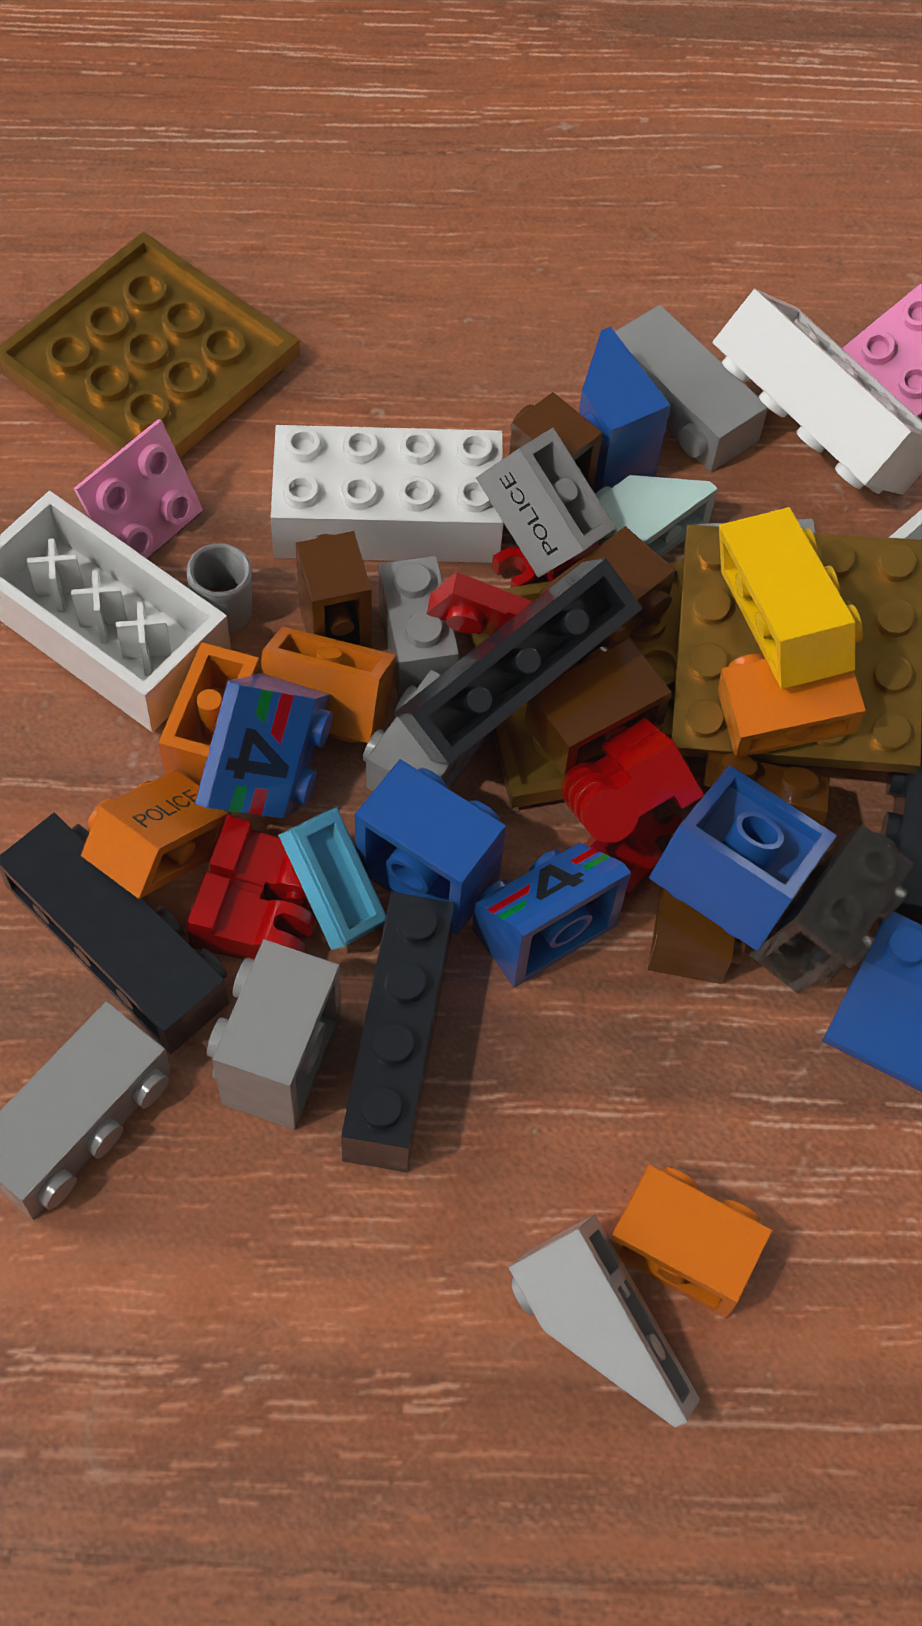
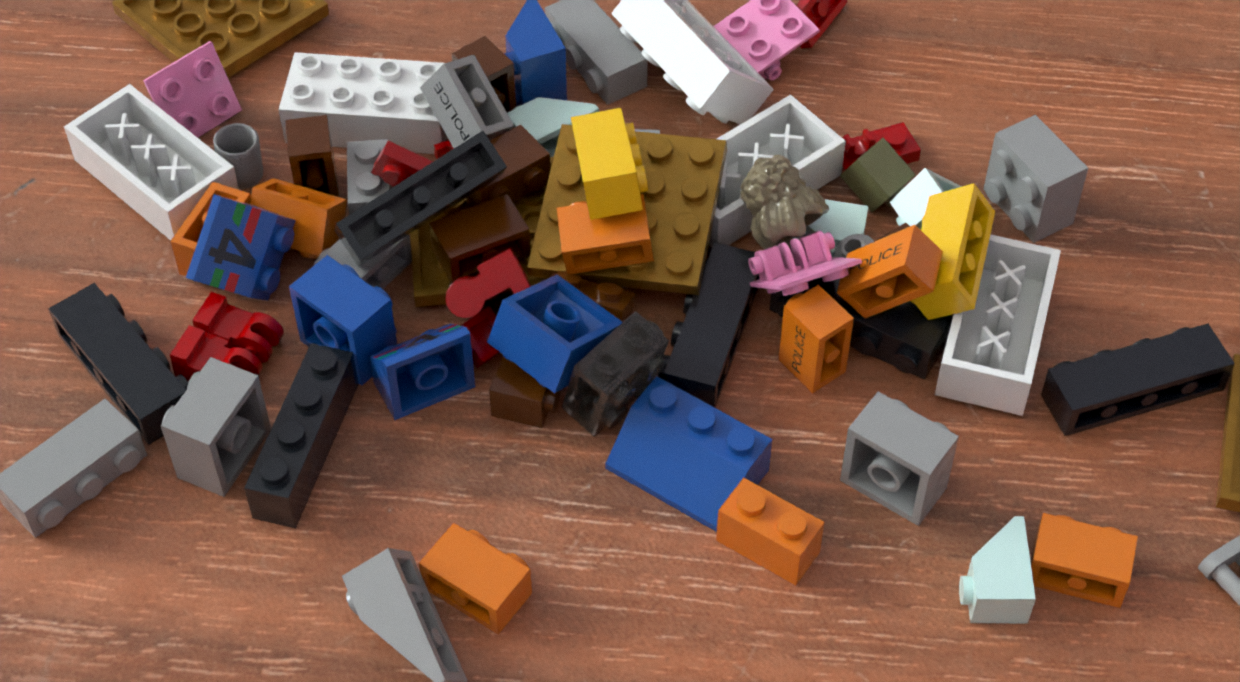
camera: 10 degrees right, 10 degrees down
(152, 834) = (156, 299): orange brick -> none
(333, 878) = (275, 334): medium azure tile -> none

